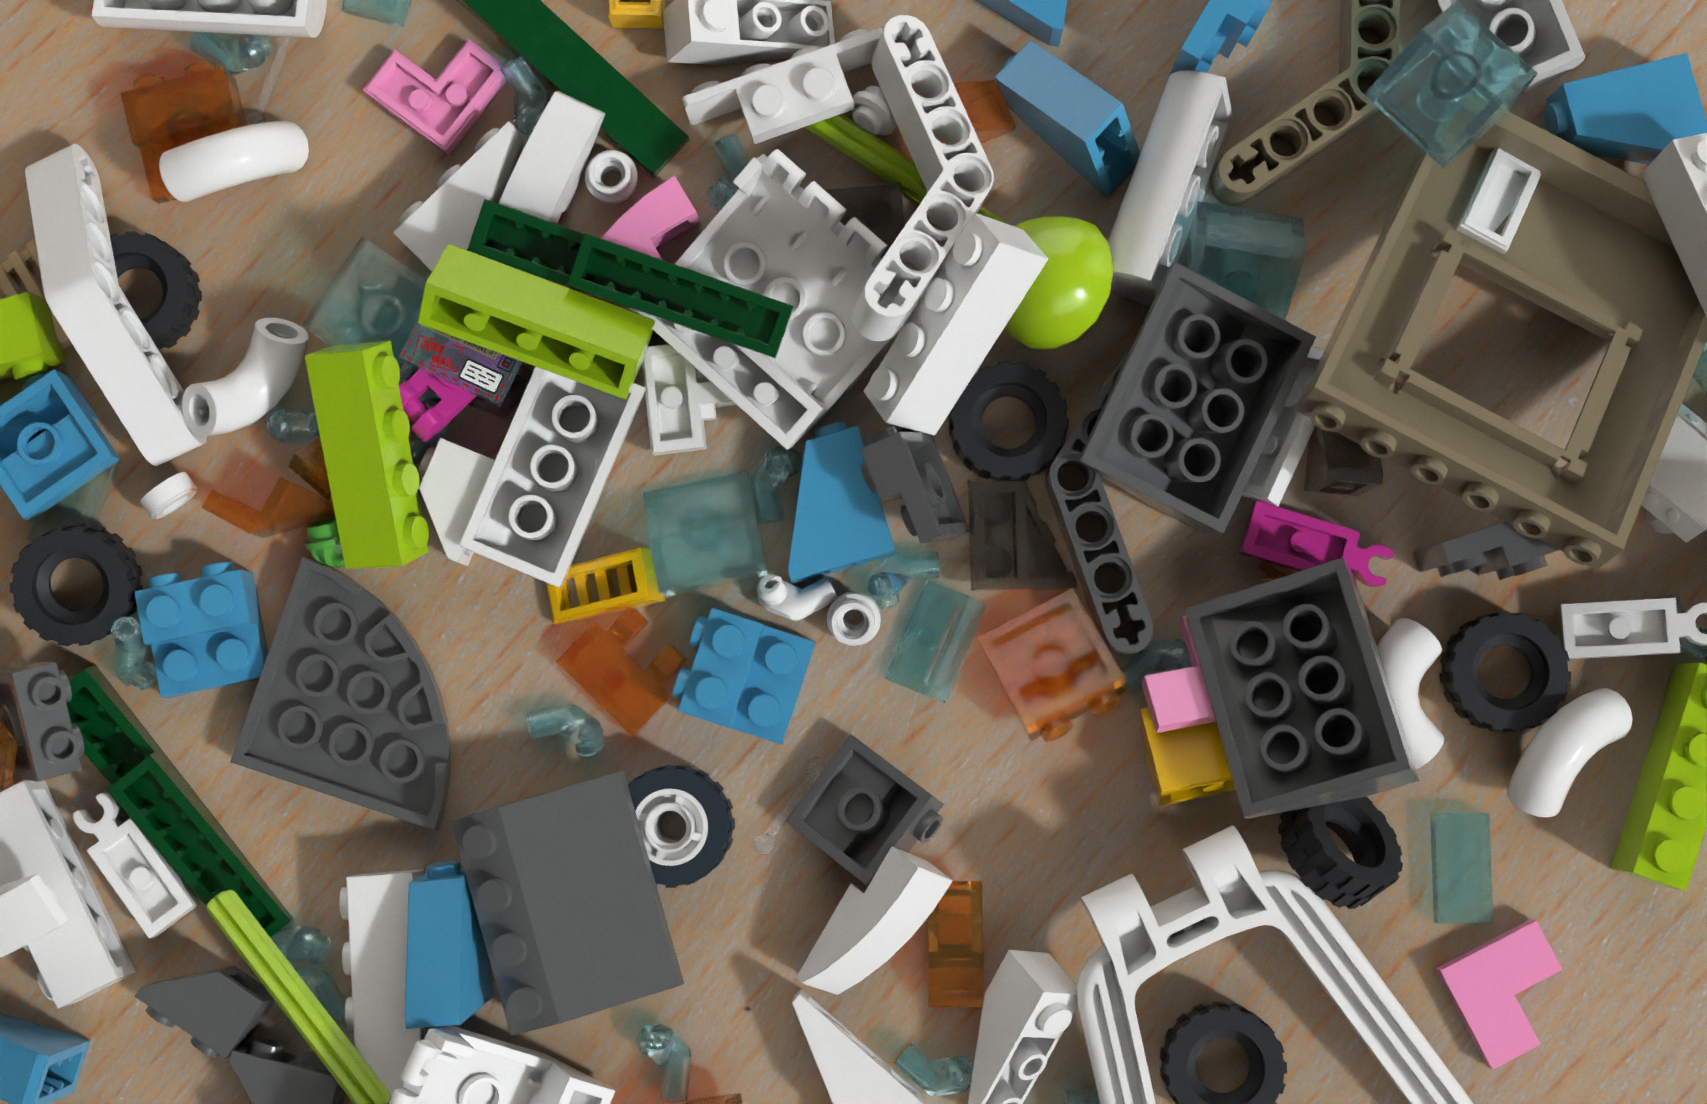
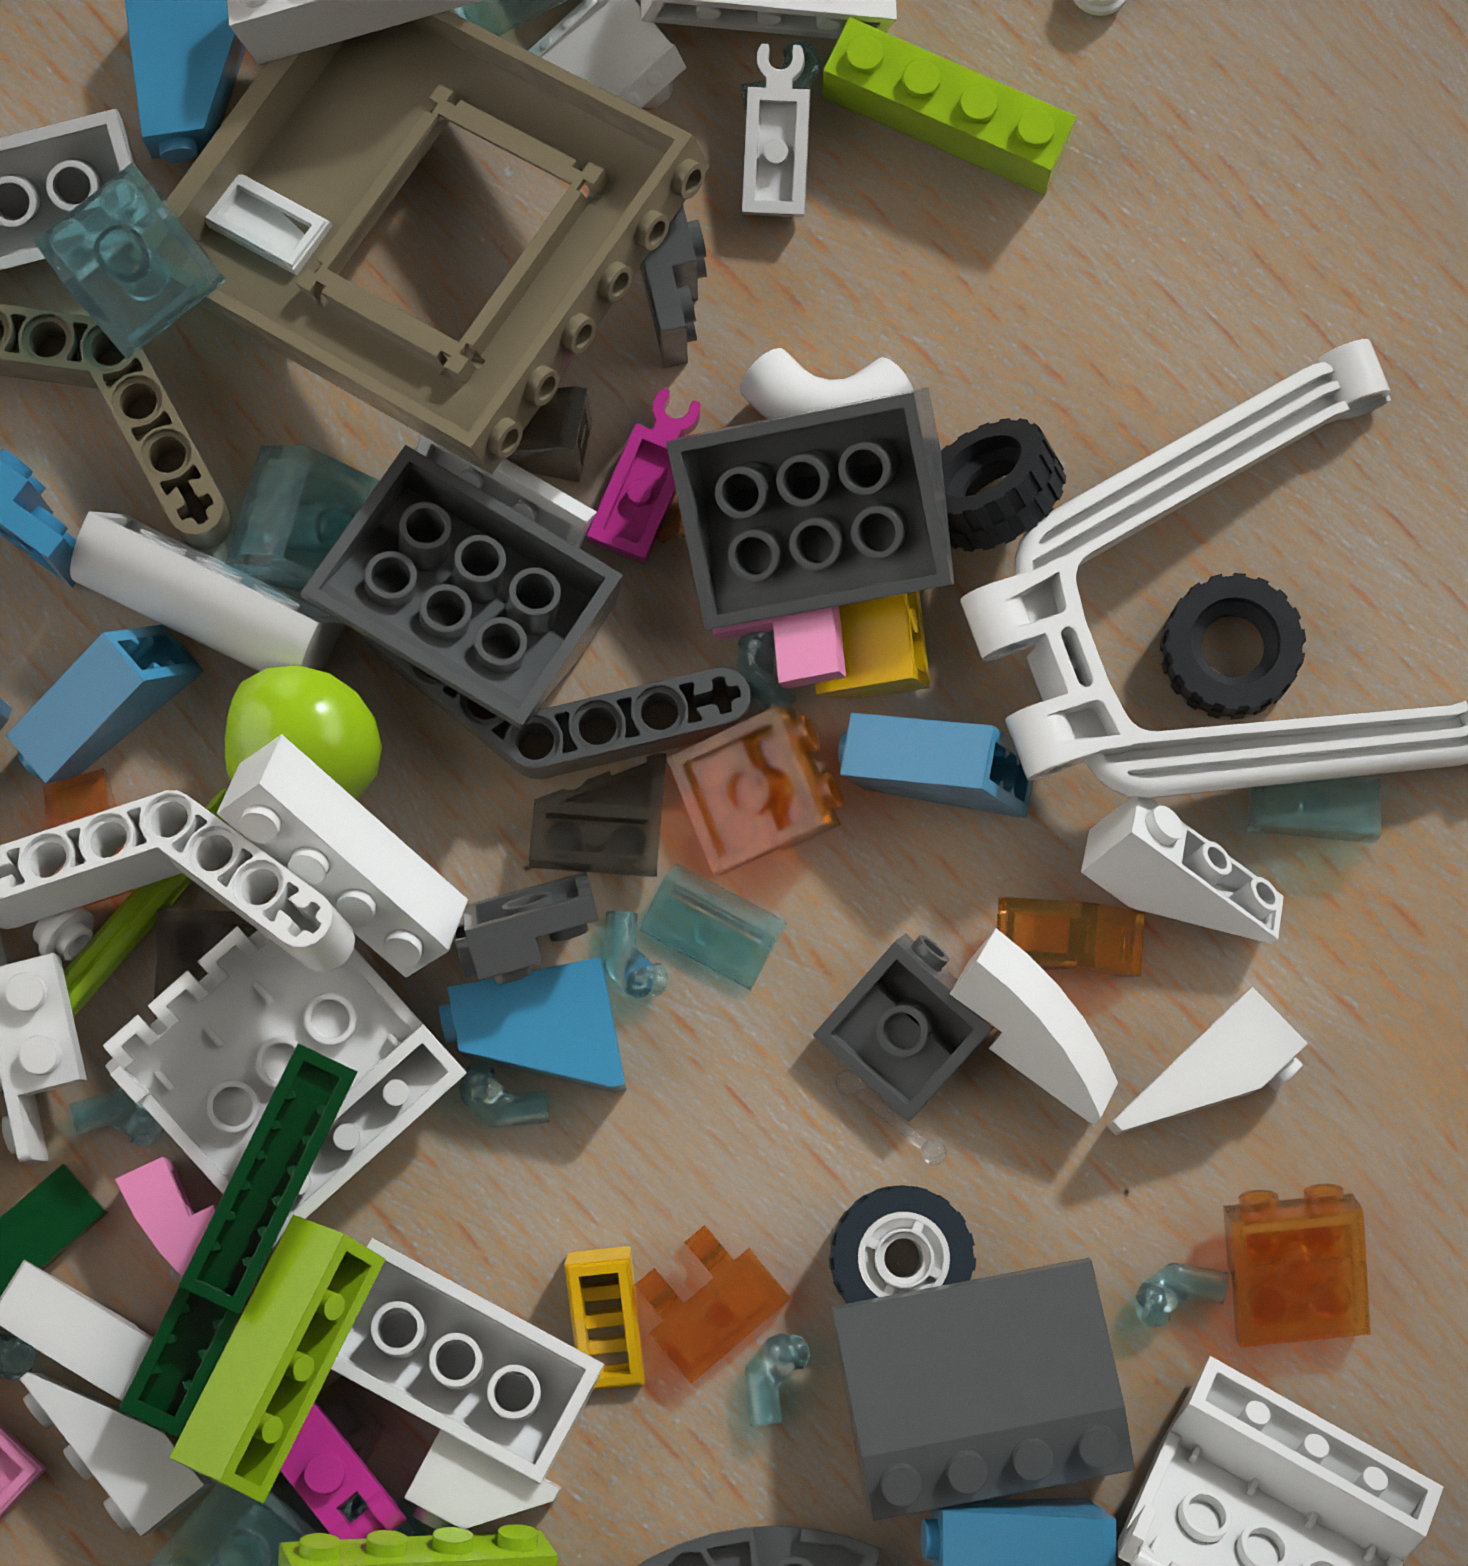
camera: 90 degrees left, 5 degrees down
(460, 363) = (316, 1460): tile -> none
(611, 161) = (82, 1257): white plate -> none
(677, 401) = (391, 1203): white hinge -> none
(704, 534) = (554, 1185): clear light blue slope -> none
(743, 675) = (730, 1156): dark azure plate -> none
(791, 601) = (648, 1089): white arm -> none
(846, 632) = (694, 1018): white plate -> none
(936, 1076) = (1220, 971): clear light blue arm -> none
(1049, 416) = (471, 764): black tyre -> none
(1091, 815) = (935, 762): none -> dark azure slope
(1461, 868) = (1030, 356): clear light blue tile -> none
(1485, 987) = (1166, 346): bright pink tile -> none
(1546, 662) = (802, 236): black tyre -> none
(1564, 748) = (905, 227): white cylinder -> none

